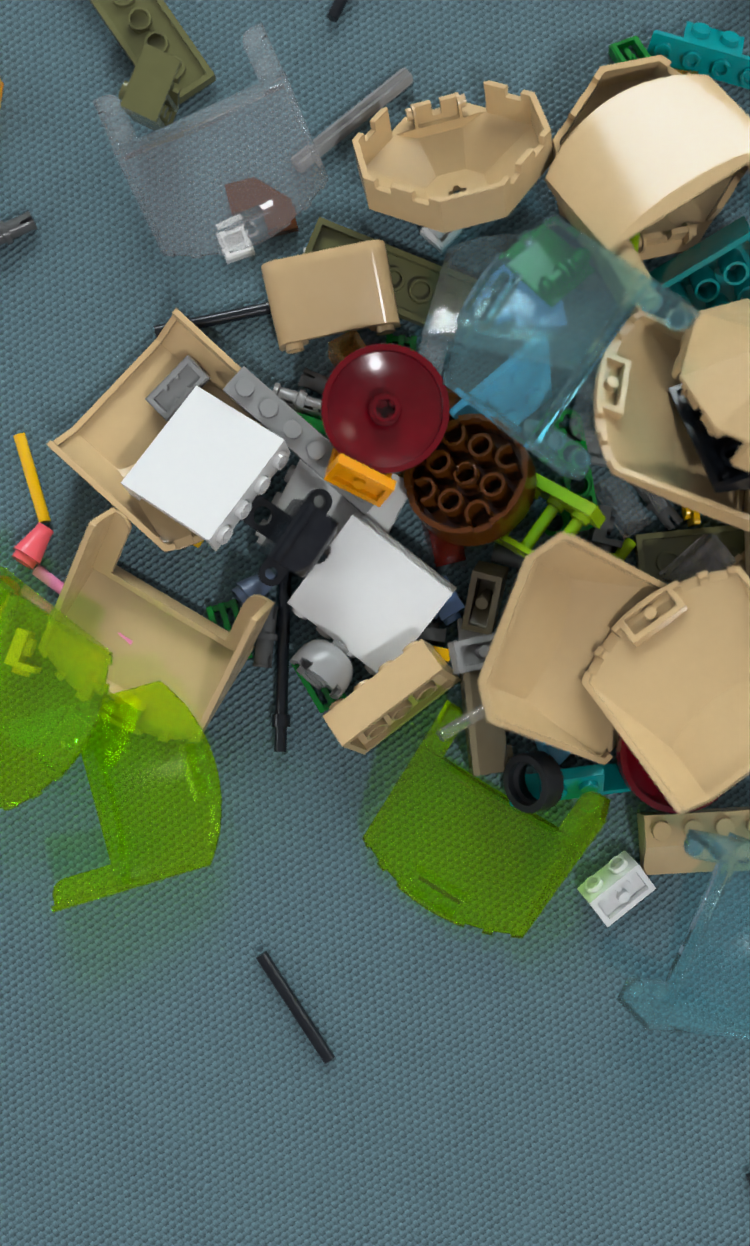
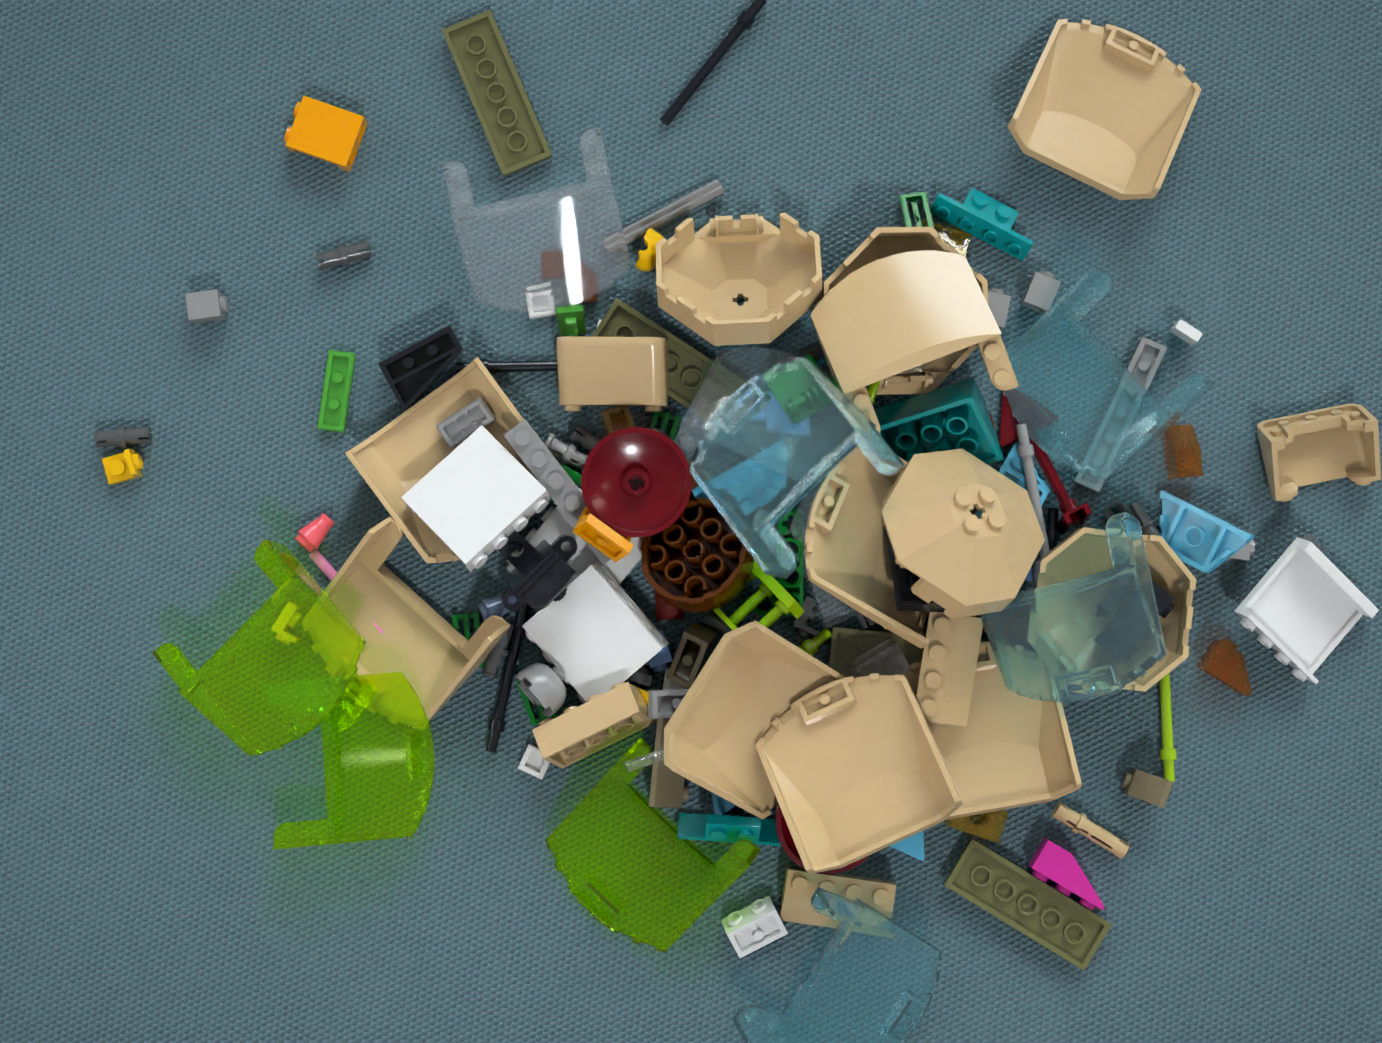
camera: 10 degrees right, 0 degrees up
(27, 385) = (336, 391): none -> bright green tile
(32, 478) = (324, 472): yellow bar -> none
(115, 333) = (420, 365): none -> black wedge
(151, 91) = (494, 172): olive wedge -> none
(271, 248) = (571, 320): none -> bright green tile
(295, 1007) = (459, 972): black bar -> none
(331, 753) = (533, 762): none -> white tile
(346, 165) = (647, 258): none -> yellow hair
(550, 776) = (712, 821): black tyre -> none

